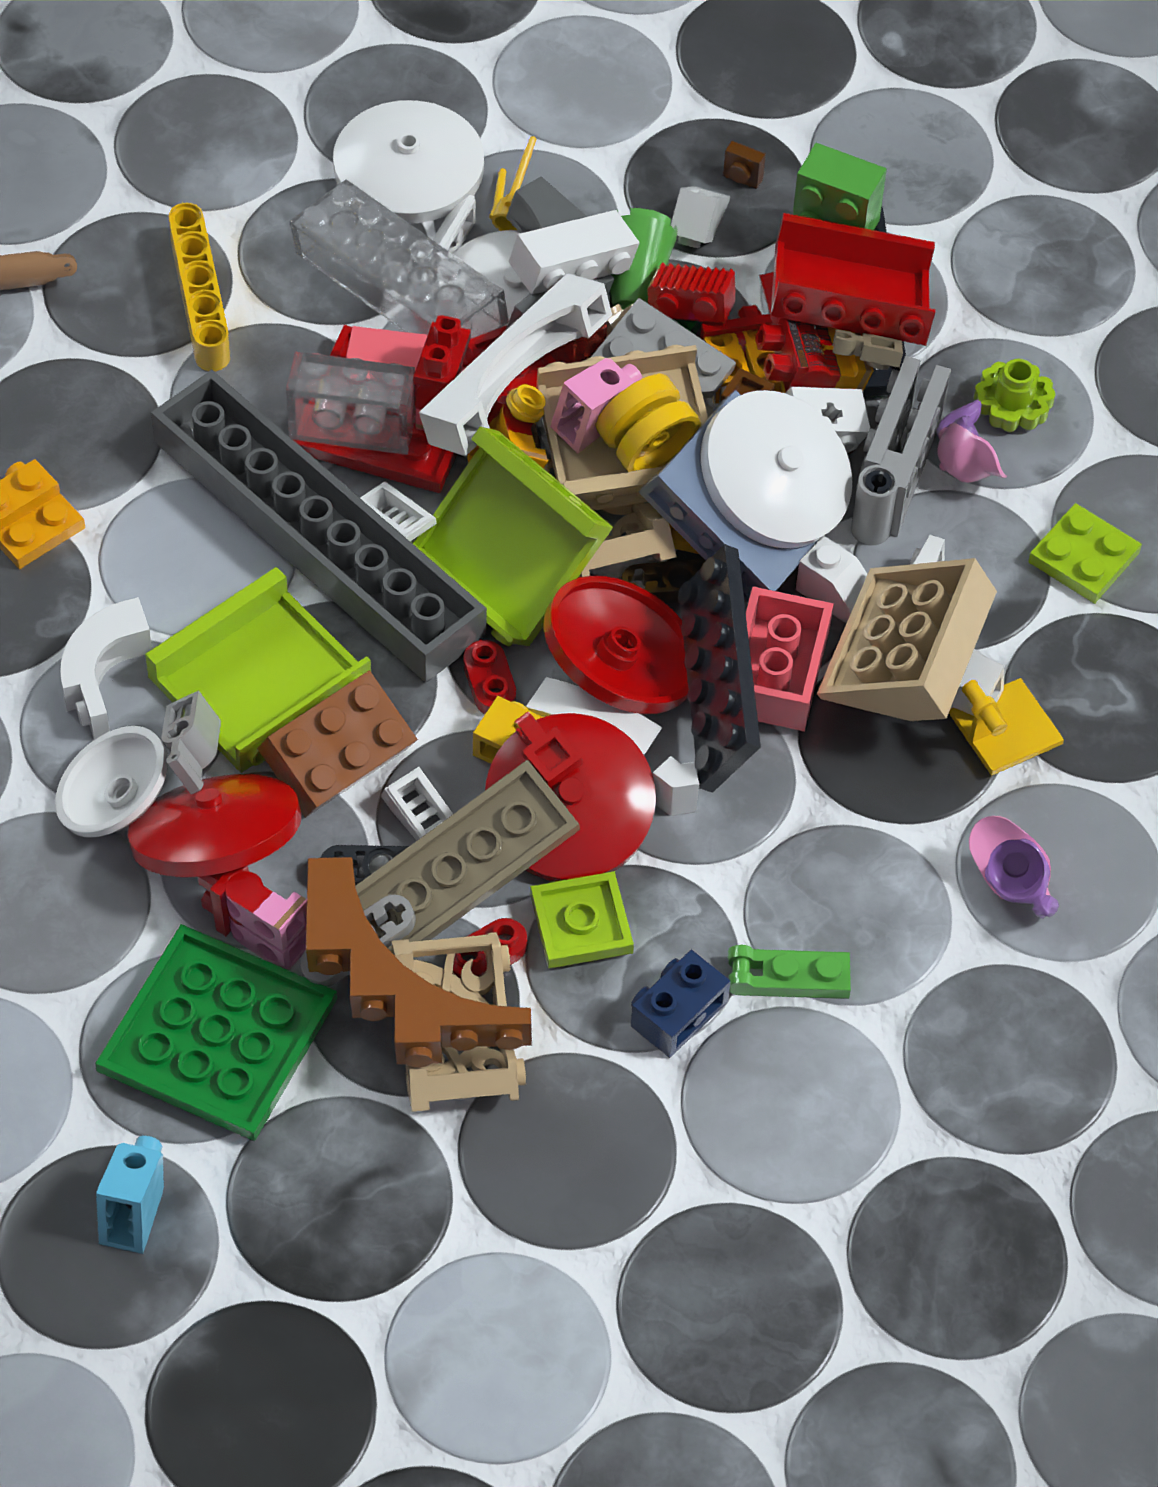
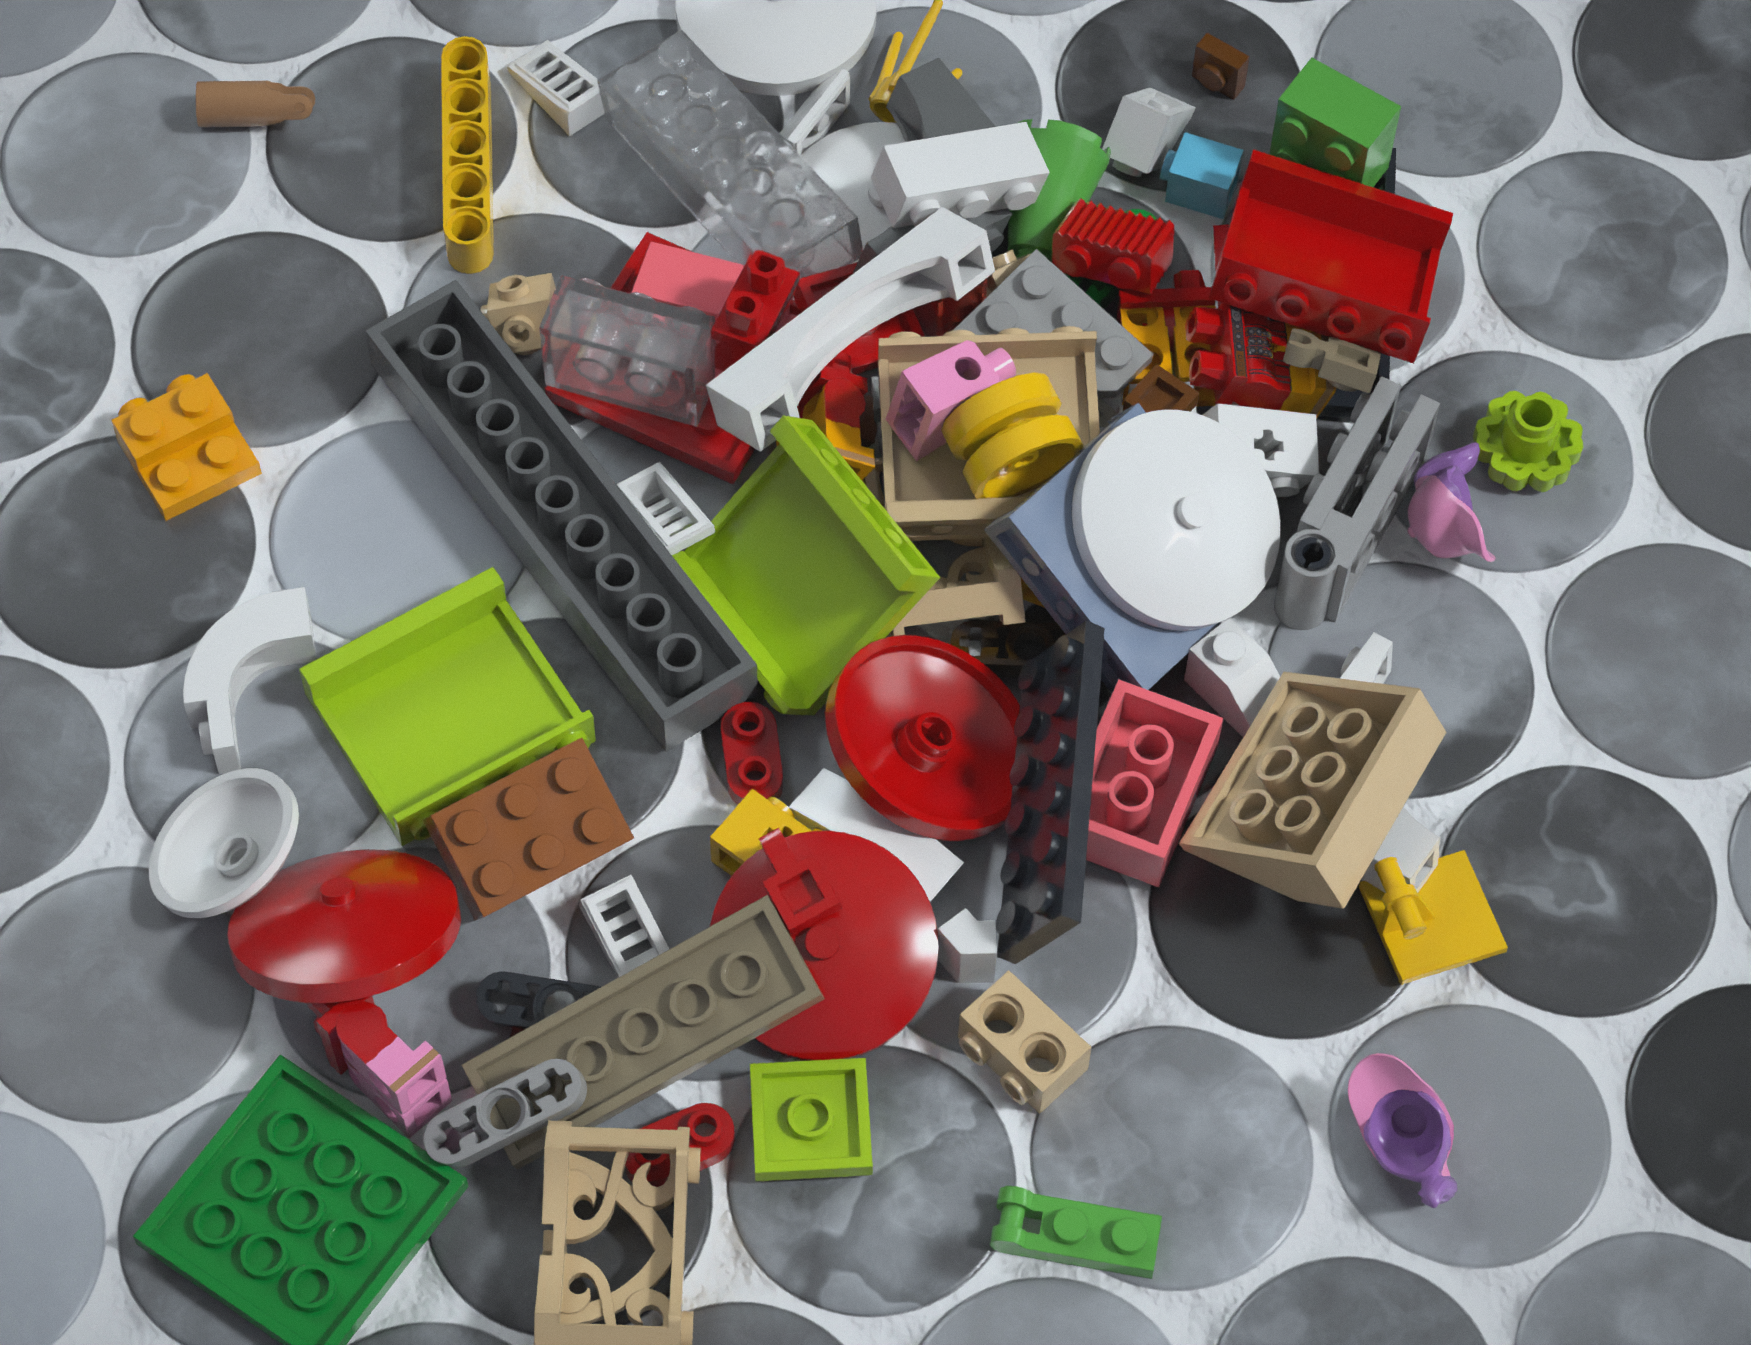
camera: 10 degrees right, 5 degrees up
(192, 738) = (334, 799): light grey piece -> none
(264, 387) = (517, 310): none -> tan brick
(266, 250) = (567, 114): none -> white slope
(383, 987) = (513, 1191): dark orange arch -> none
(526, 403) = (857, 383): yellow plate -> none
(679, 1002) = (919, 1257): dark blue brick -> none
(732, 840) = (1035, 1034): none -> tan brick
(744, 240) = (1202, 175): none -> medium azure brick
(1085, 553) = (1585, 679): lime plate -> none

